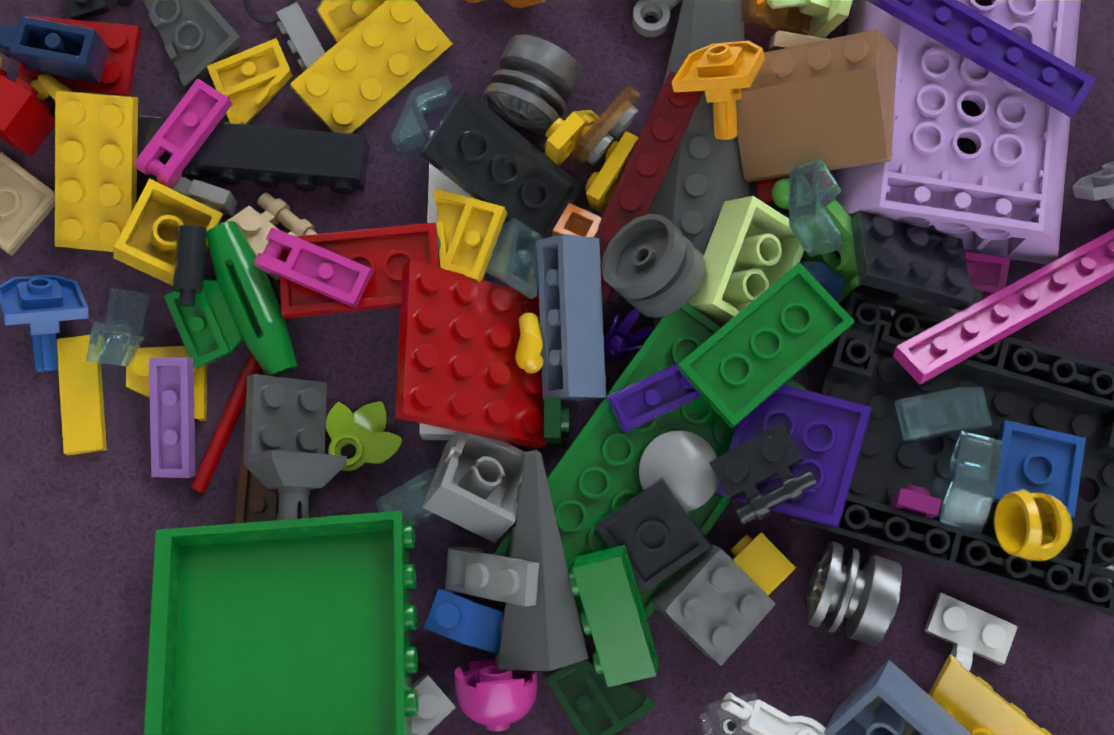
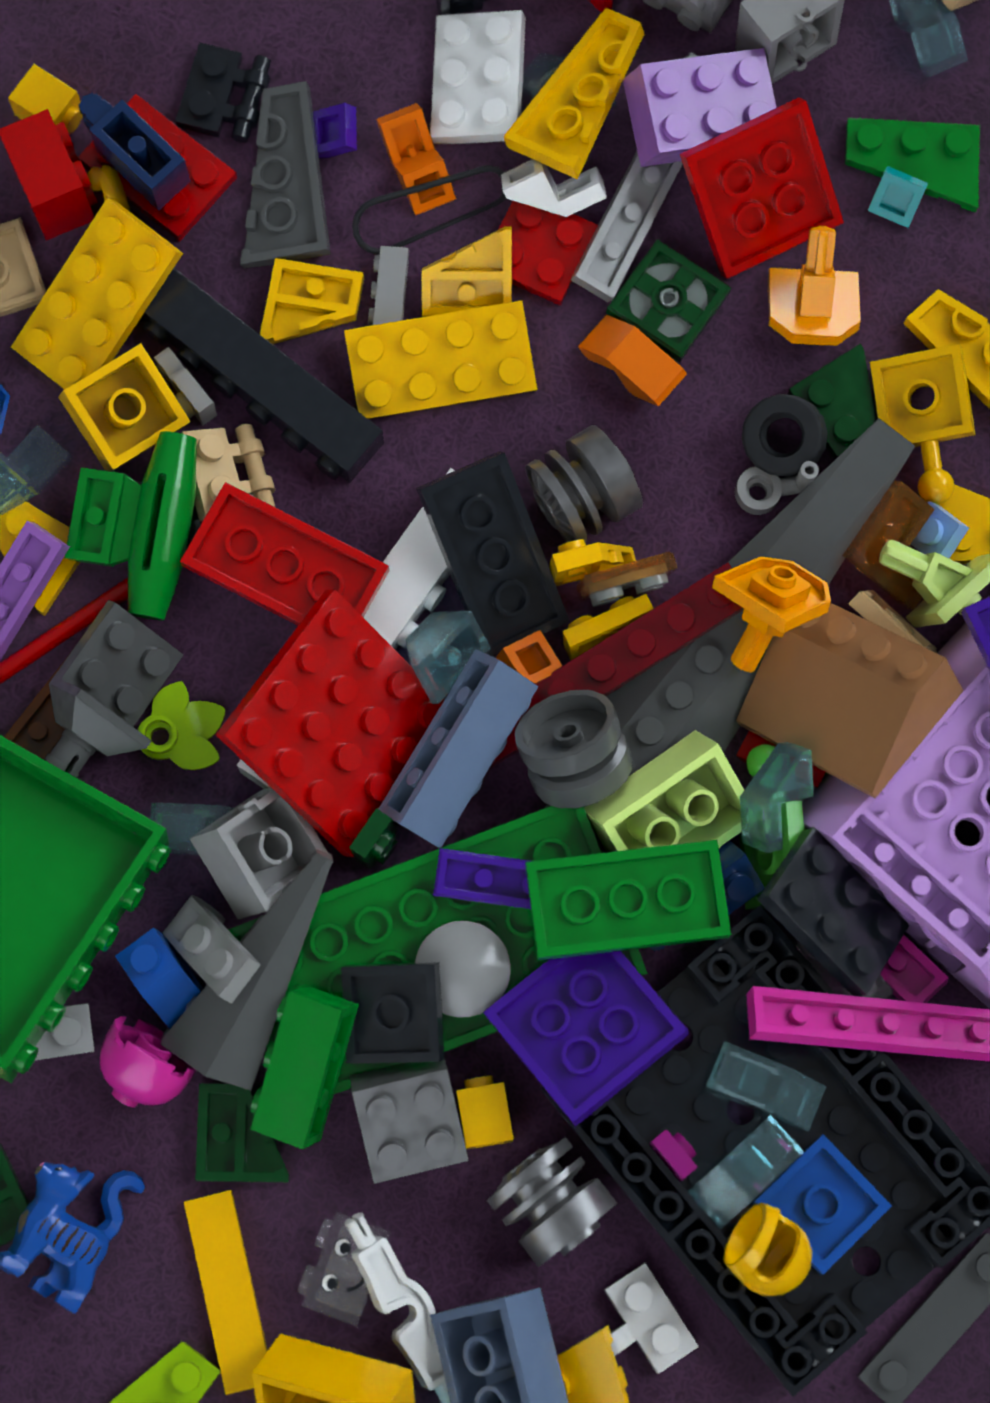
camera: 30 degrees right, 0 degrees up
(183, 133) = (204, 316): dark pink plate -> none
(189, 263) = (124, 453): black cylinder -> none
(314, 267) = (240, 536): dark pink plate -> none
(411, 126) = (437, 450): clear light blue slope -> none
(467, 232) = (413, 596): yellow wing -> none
(529, 344) = (399, 747): yellow arm -> none
(618, 339) = (496, 801): dark purple piece -> none
(756, 463) = (541, 1010): black plate -> none

